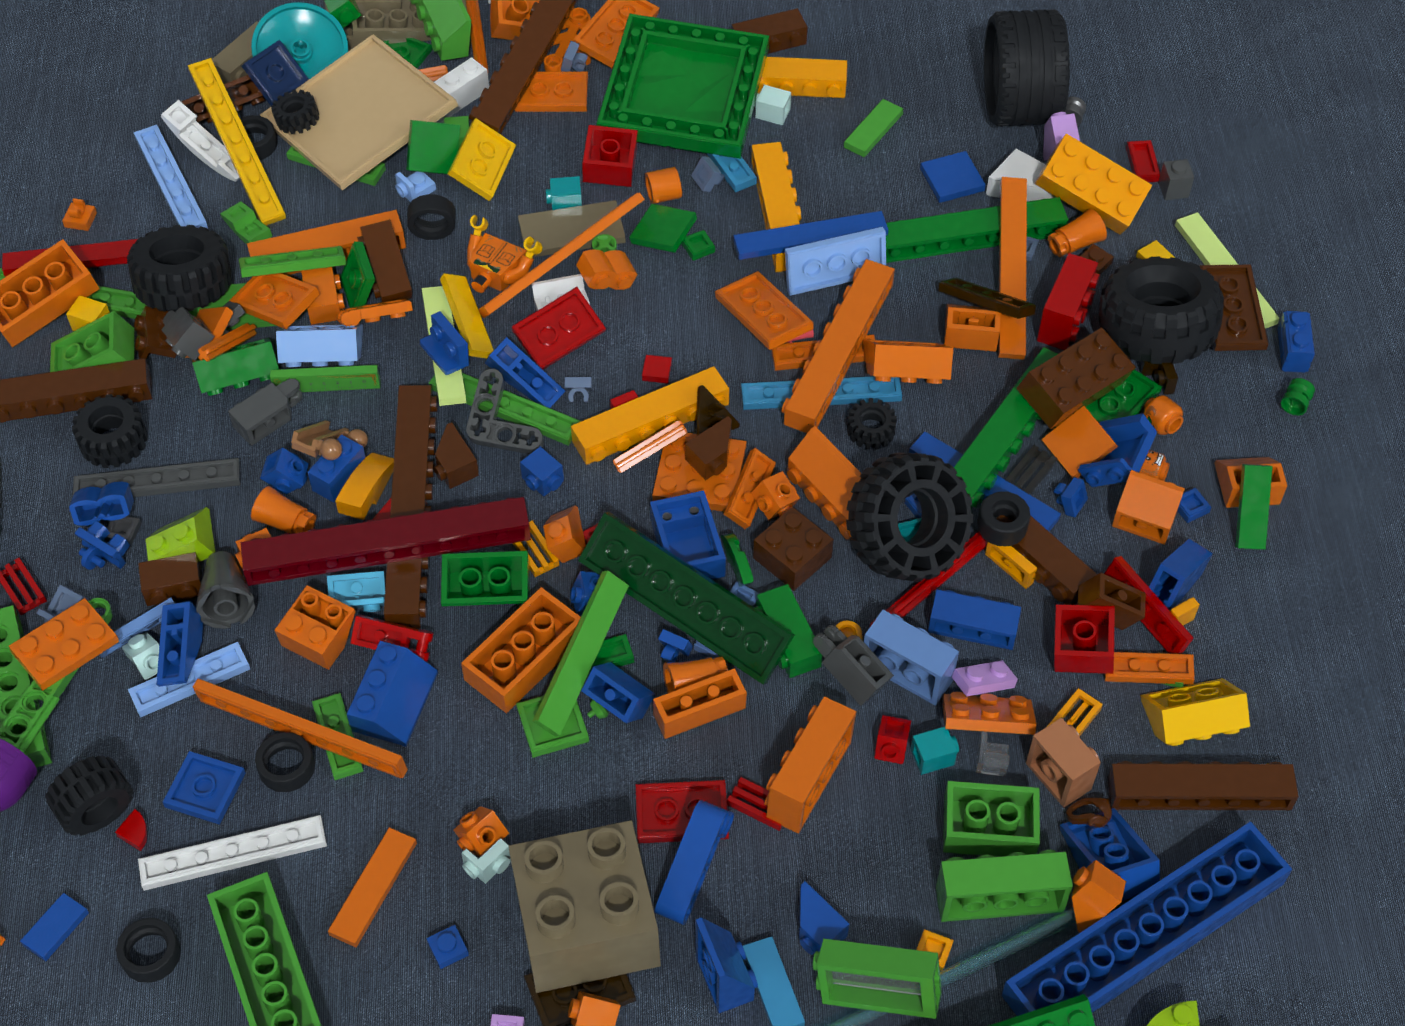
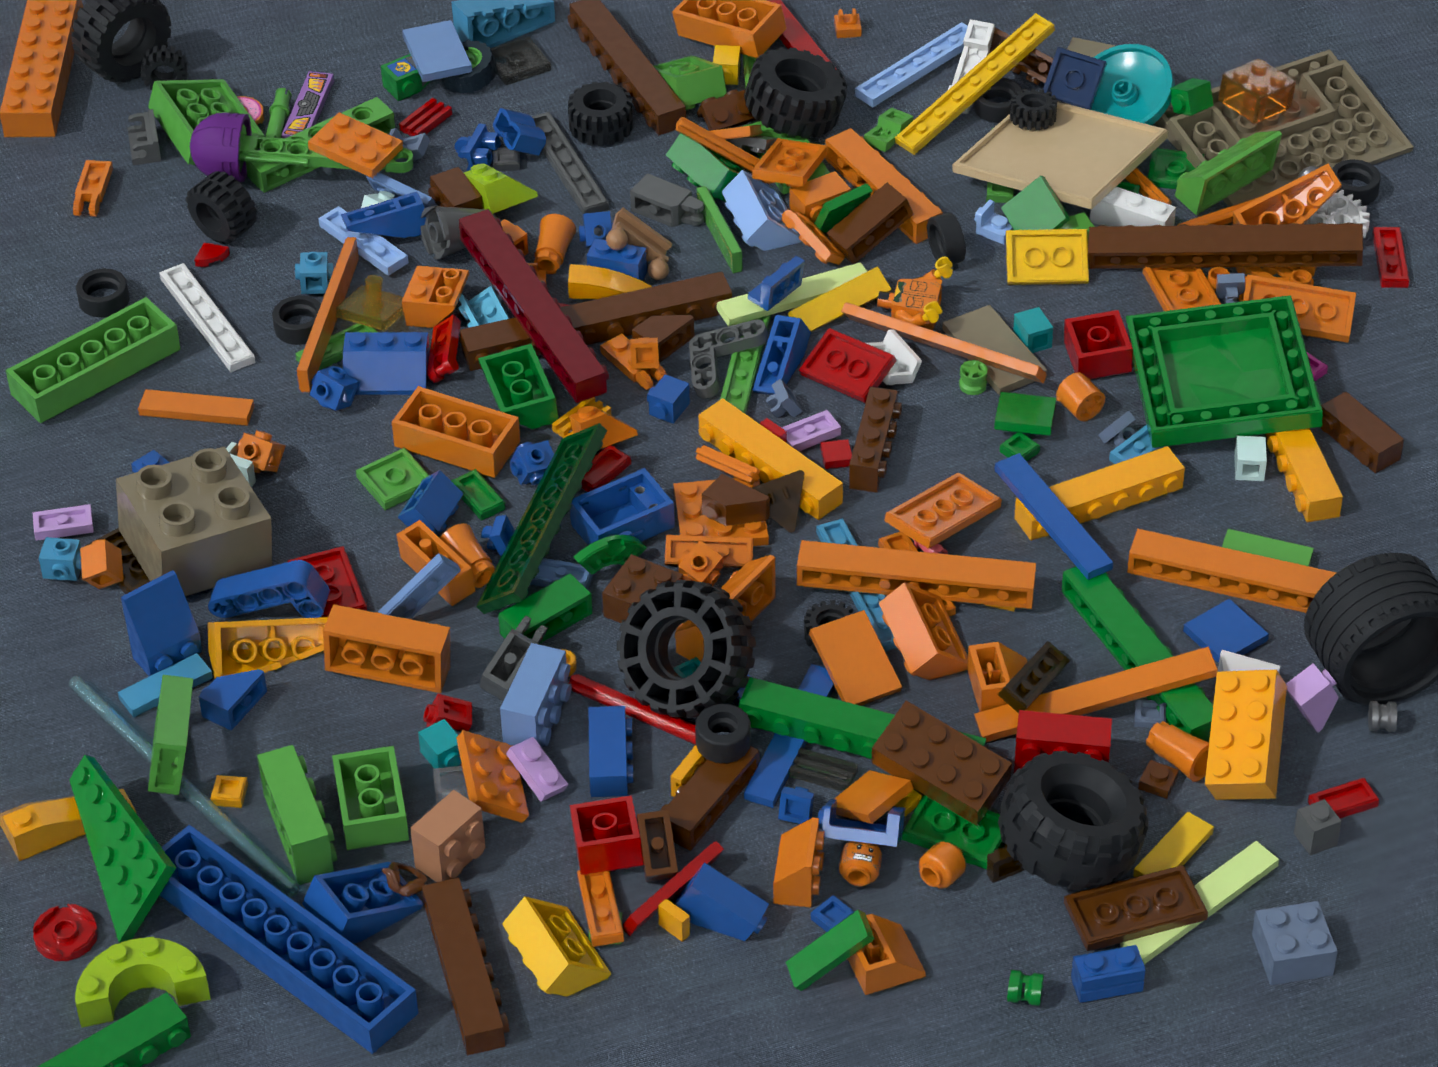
camera: 75 degrees right, 10 degrees down
(54, 927) = (112, 237): blue tile -> none
(185, 333) = (716, 115): dark grey hinge -> none
(204, 787) = (260, 280): blue plate -> none
(225, 730) = (314, 272): none -> dark azure brick
(292, 261) = (835, 156): bright green tile -> none
(299, 688) = (371, 305): none -> clear yellow tile
(415, 744) = (333, 388): none -> blue brick
(474, 489) = (619, 354): none -> orange hinge
(485, 469) = (644, 353): none -> orange tile
(580, 653) = (459, 463): bright green tile -> none
(606, 269) = (939, 380): orange brick -> none
(624, 375) = (812, 430): none -> lavender plate
(658, 334) = (874, 439): none -> reddish brown brick
(748, 719) = (421, 588): none -> medium blue tile
(749, 890) = (262, 643): none -> light orange wedge
(832, 260) = (1027, 539): light blue tile -> none
(912, 132) = (1225, 570): none -> orange brick
(922, 413) = (855, 659): none -> orange tile
(1088, 700) = (516, 858): light orange tile -> none
(1095, 894) = (297, 871): orange slope -> none
(1285, 225) = (1294, 943): none -> sand blue brick

